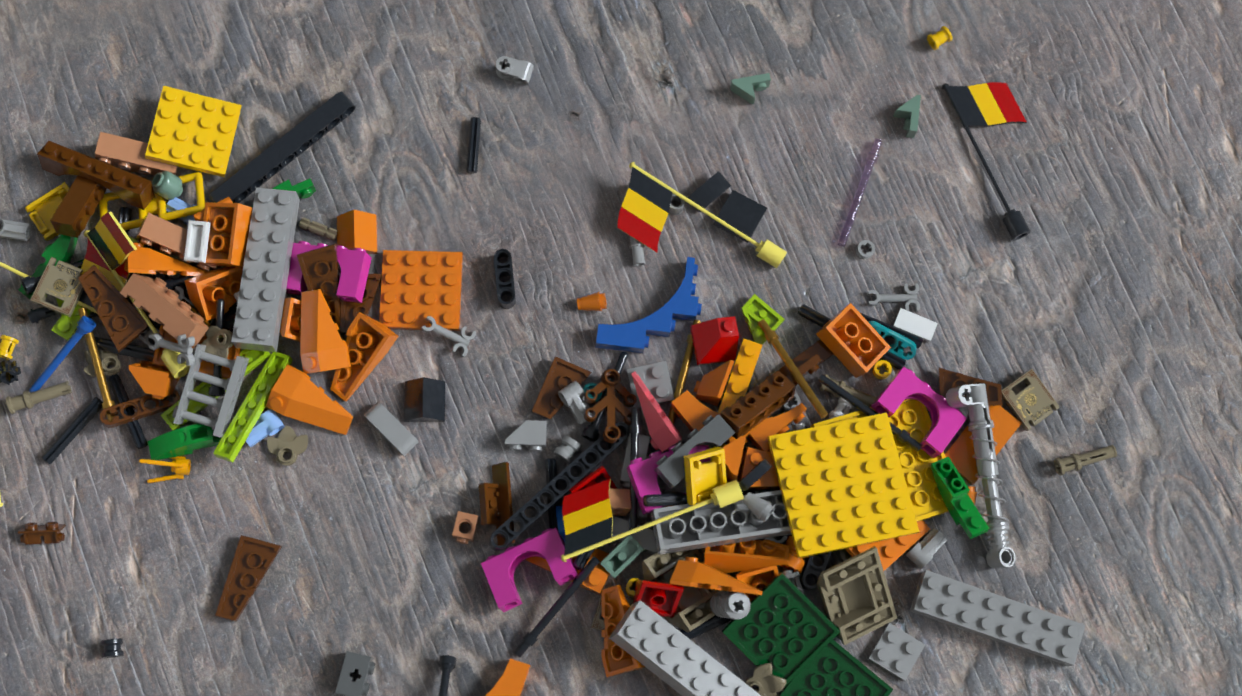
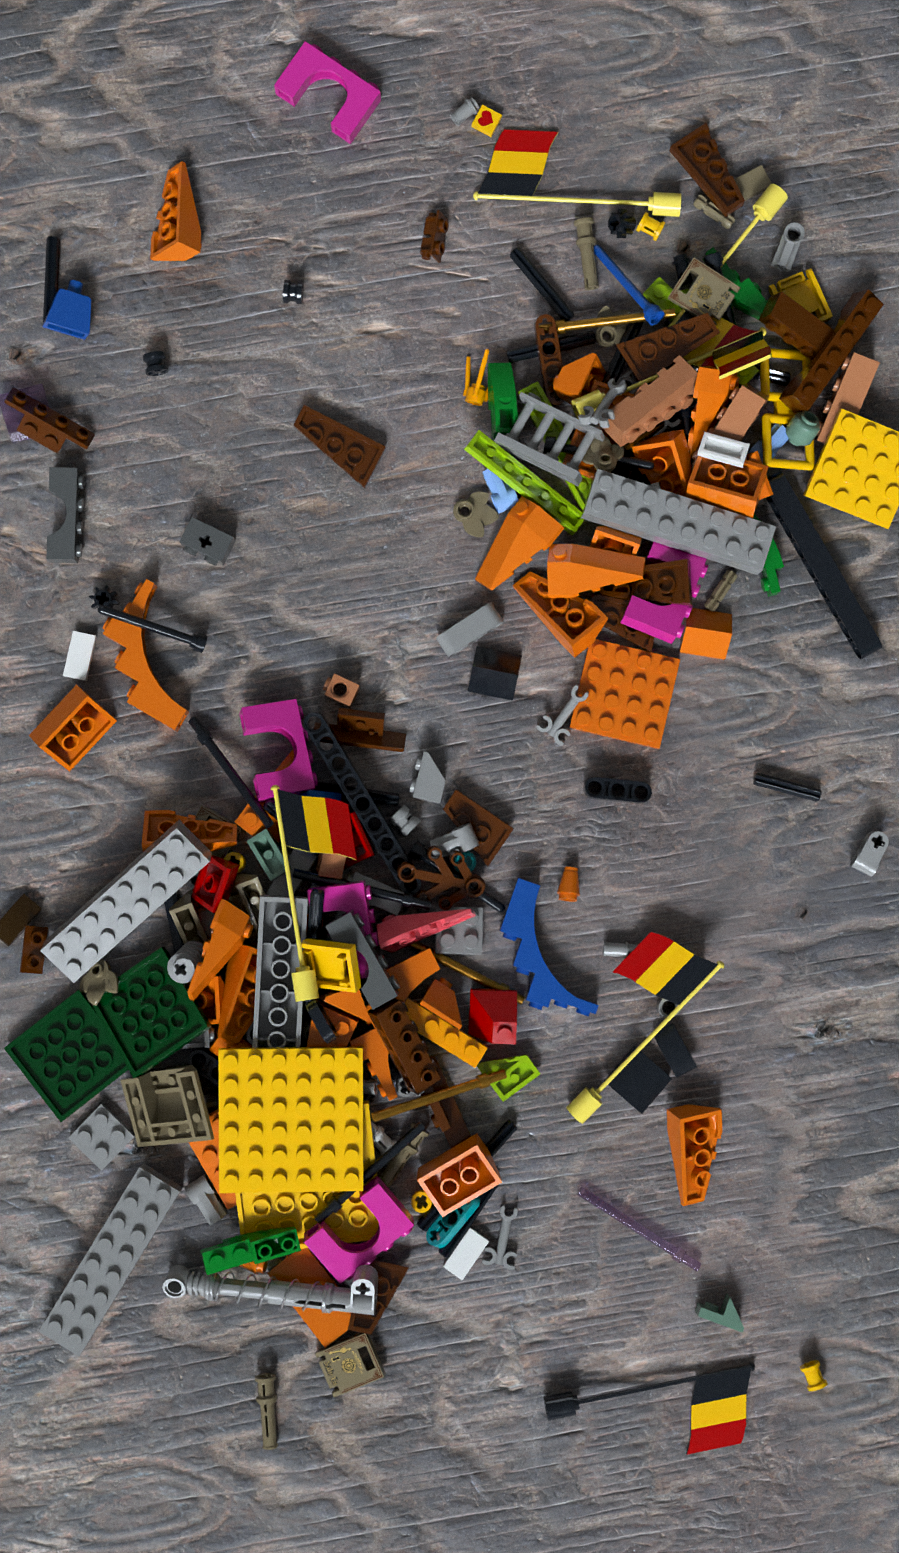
camera: 100 degrees right, 10 degrees up
(745, 86) = (796, 1122): sand green slope -> none
(760, 508) = (282, 1018): light grey cone -> none
(778, 163) = (693, 1140): none -> orange wedge
(871, 247) = (575, 1217): light grey bush -> none

